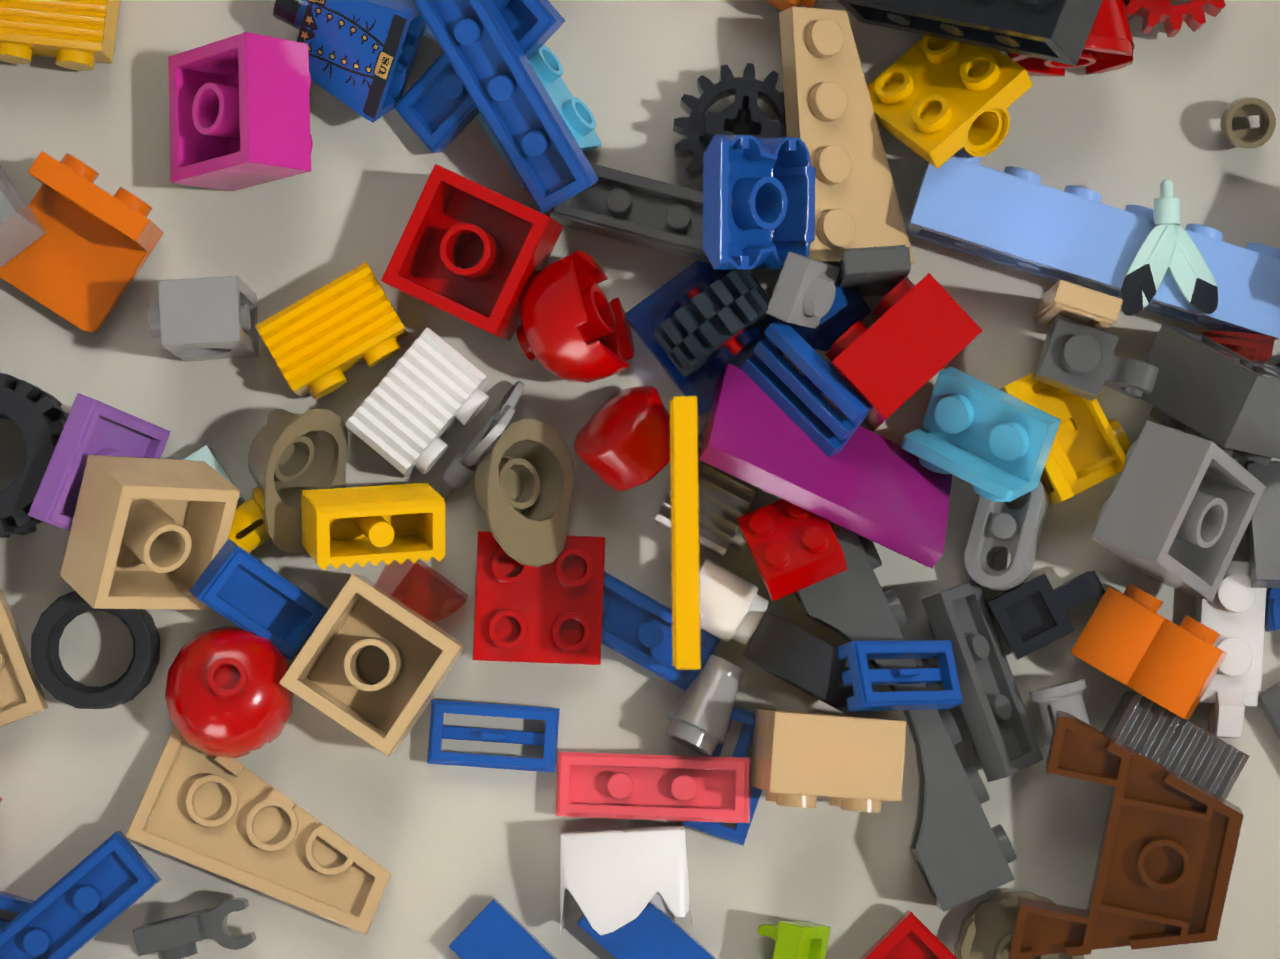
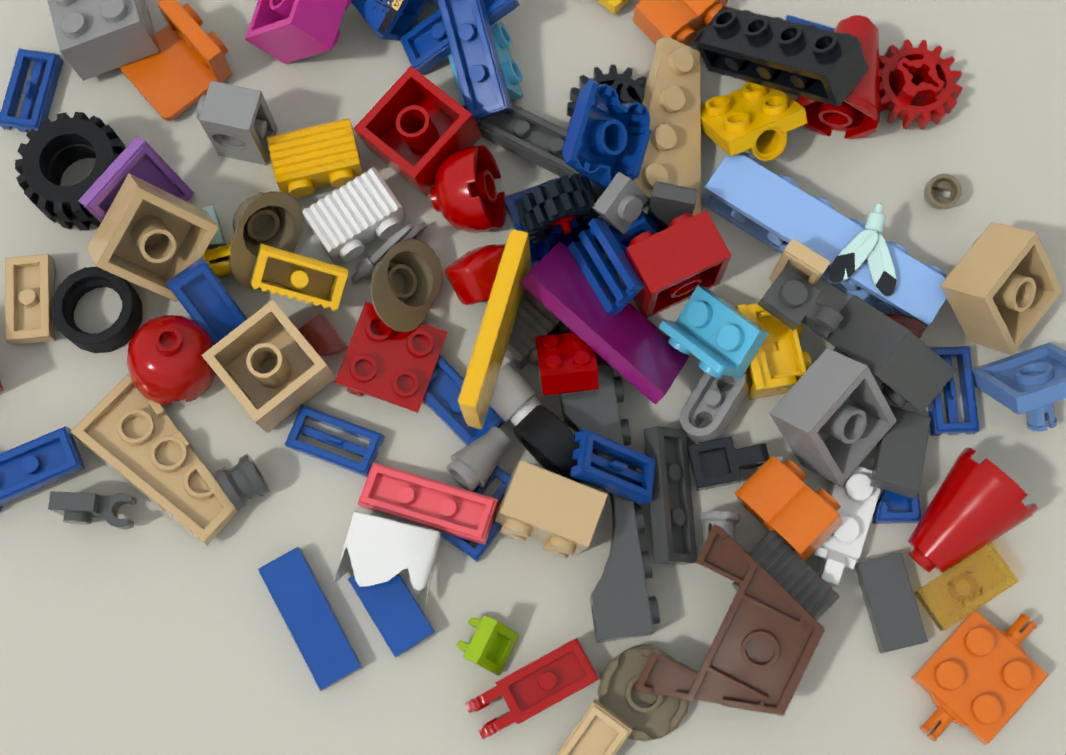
camera: 20 degrees right, 10 degrees down
(387, 833) = (242, 481): none -> dark grey wheel

